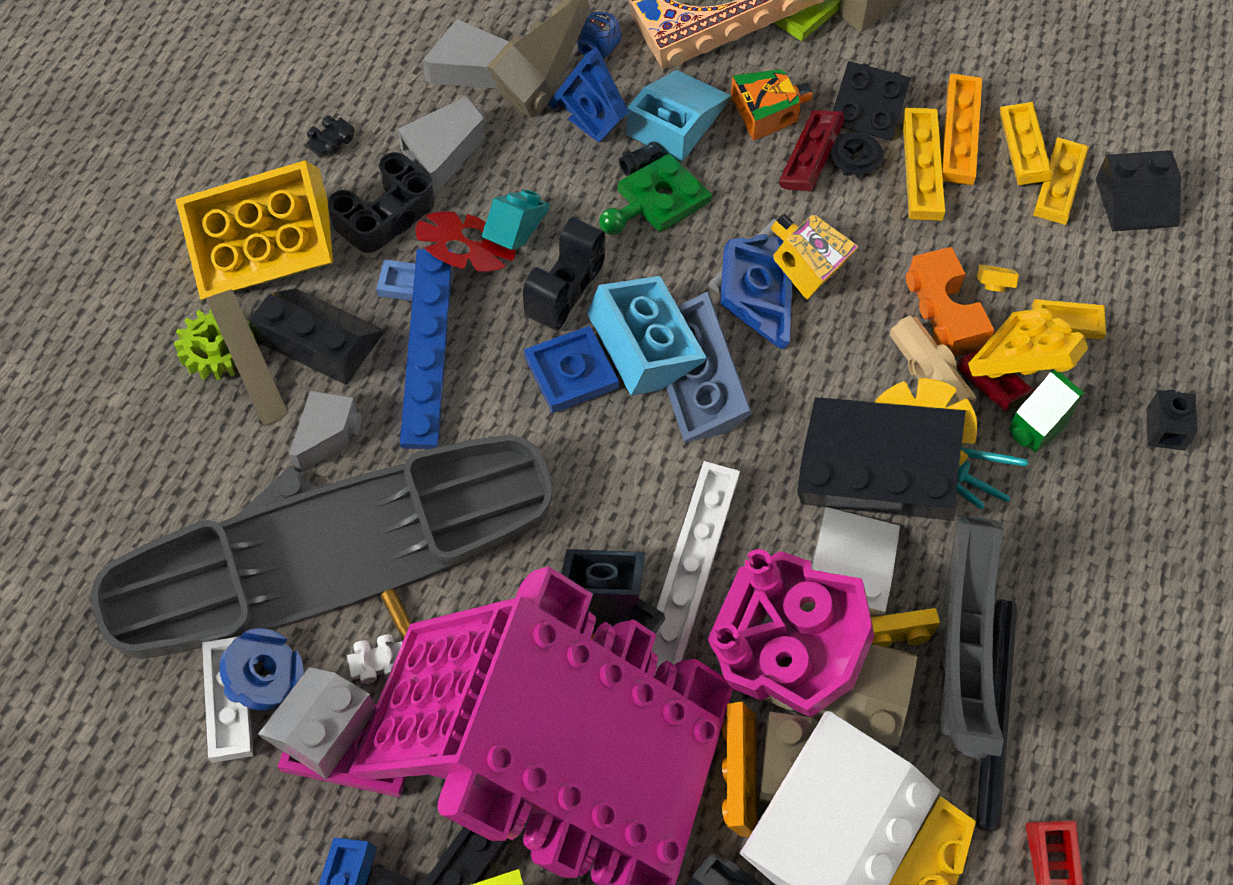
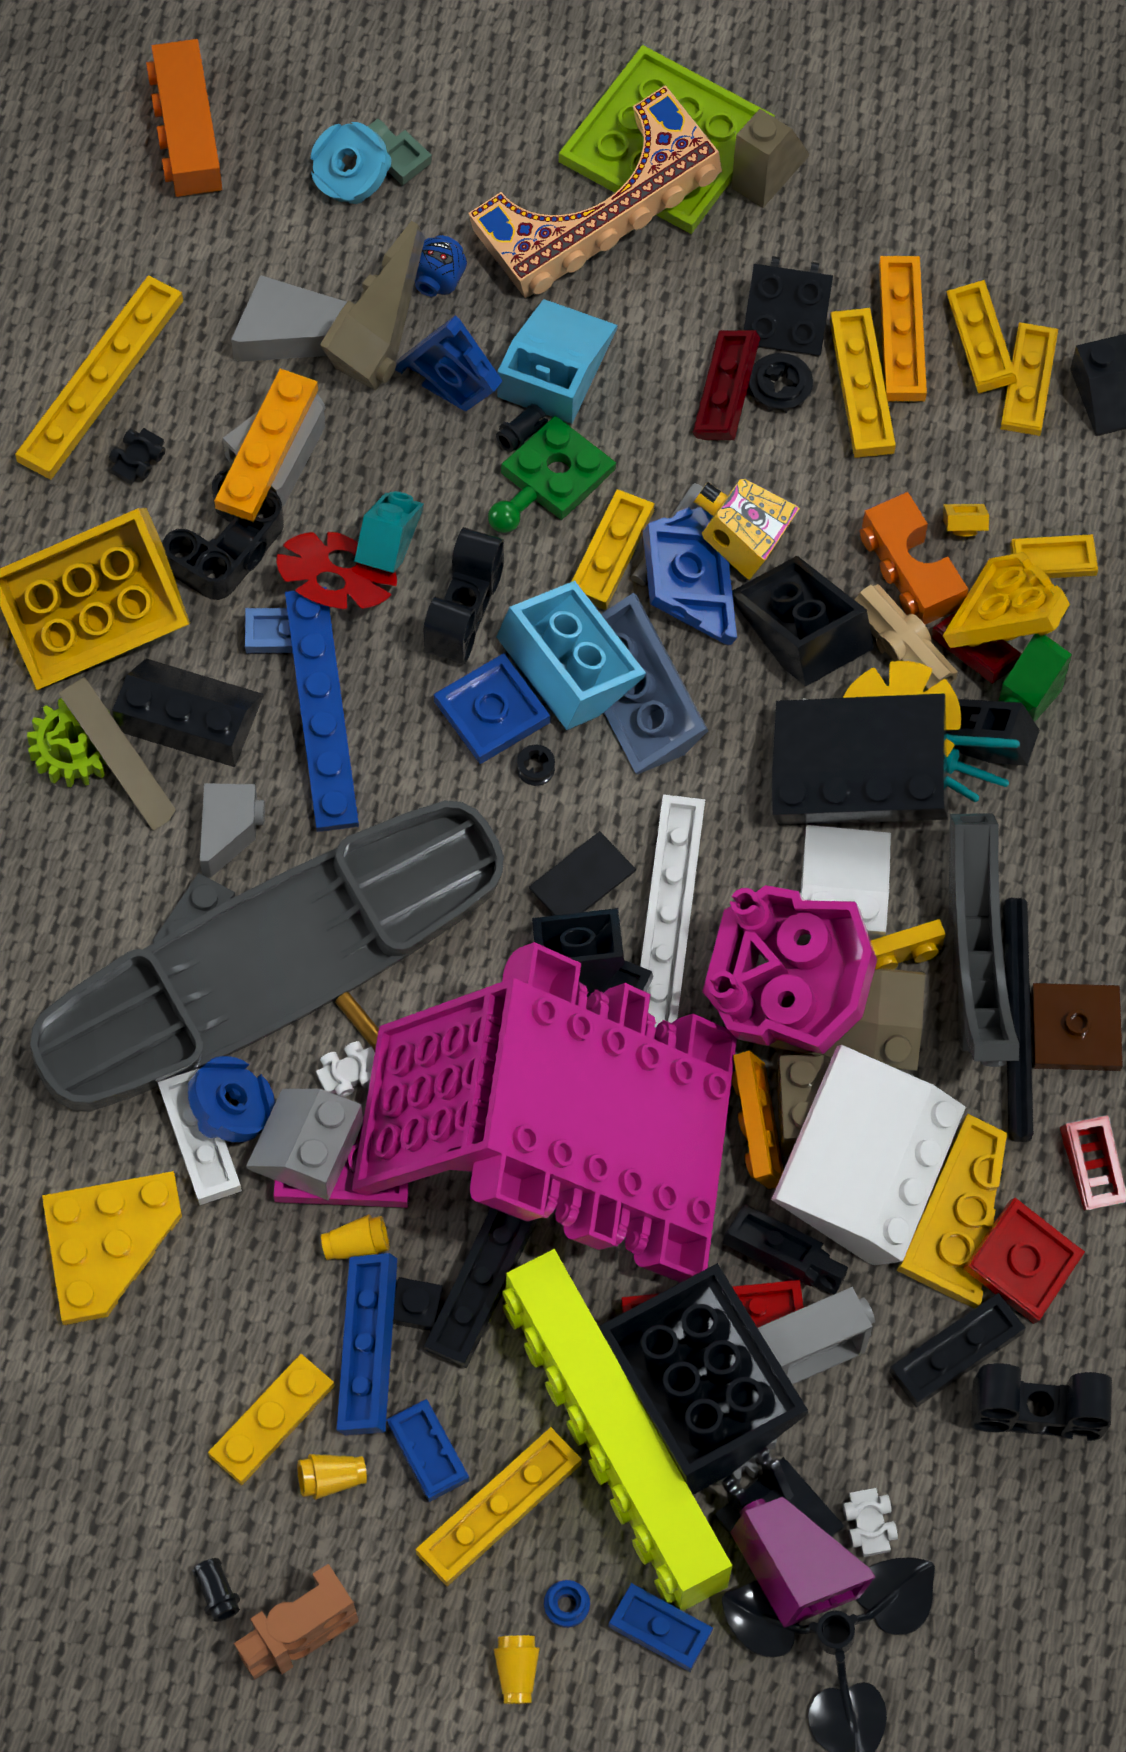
camera: 10 degrees left, 5 degrees up
(116, 781) = (106, 1239): none -> yellow plate
(315, 78) = (99, 377): none -> yellow plate
(346, 821) = (356, 1238): none -> yellow cone
(429, 137) = (266, 445): none -> light orange plate
(599, 409) = (542, 753): none -> black bush
(620, 521) = (583, 877): none -> black piece
(697, 257) = (613, 547): none -> yellow plate
(768, 101) = (663, 327): torso -> none
(850, 338) = (804, 620): none -> black slope
(1009, 441) = (997, 720): none -> black slope
(1051, 729) = (1076, 1027): none -> reddish brown plate

